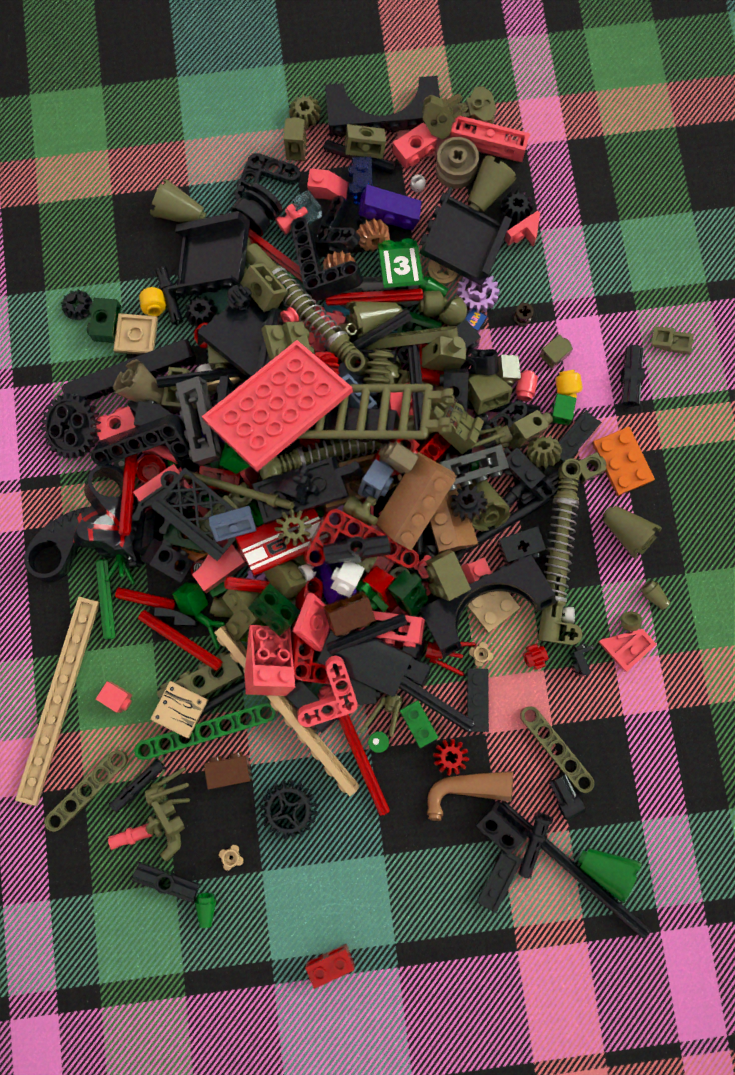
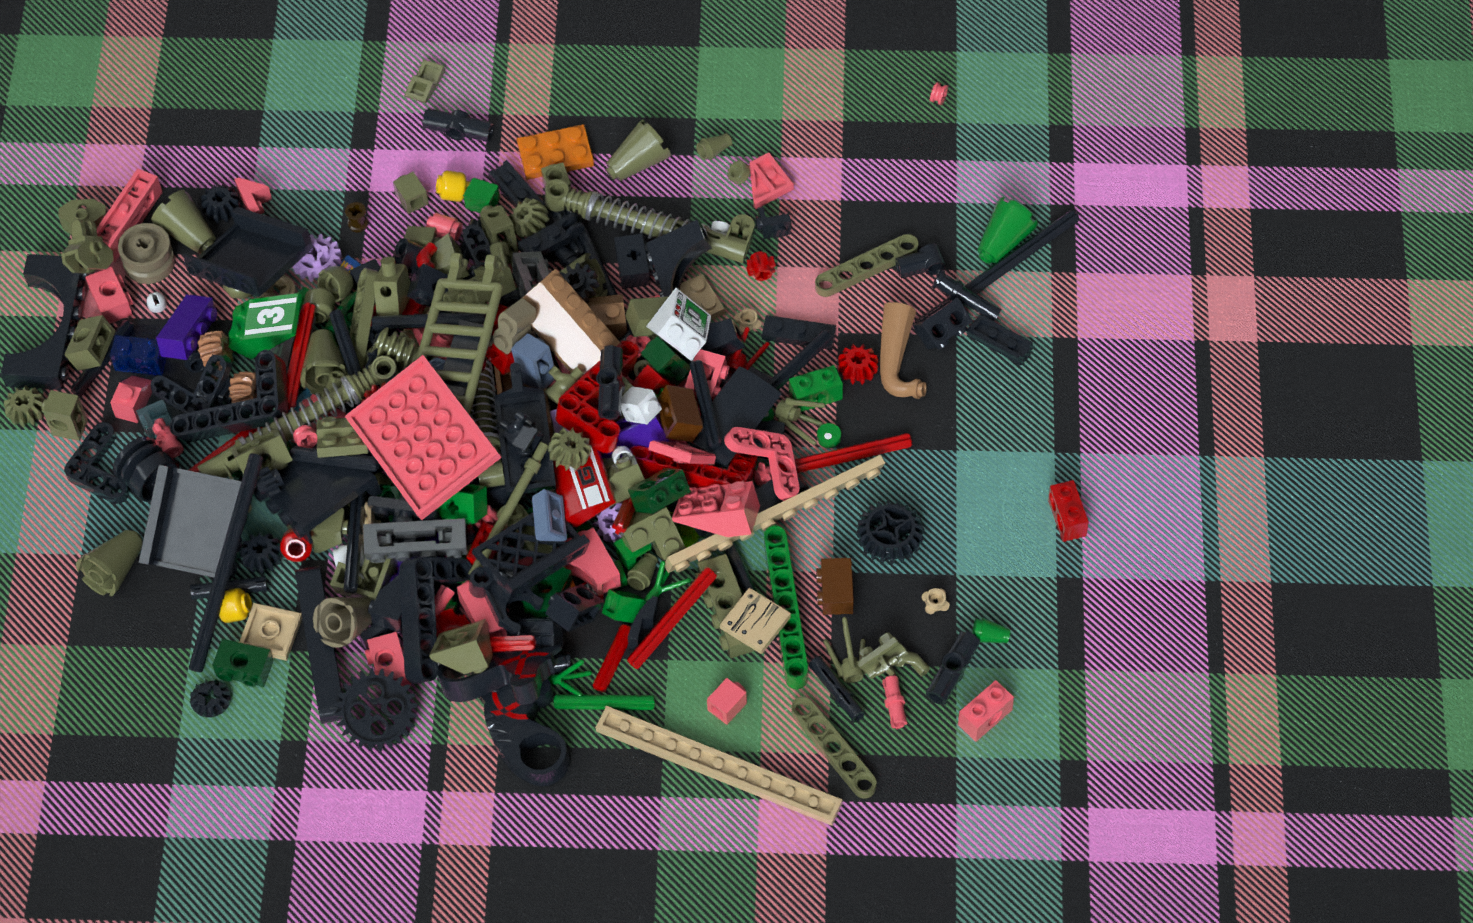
camera: 80 degrees left, 20 degrees down
(114, 479) = (464, 648): none -> olive slope
(127, 916) = (985, 710): none -> coral brick
(169, 284) = (225, 563): none -> black axle
(436, 599) = (681, 324): none -> white slope
(482, 373) = (425, 255): none -> red arm

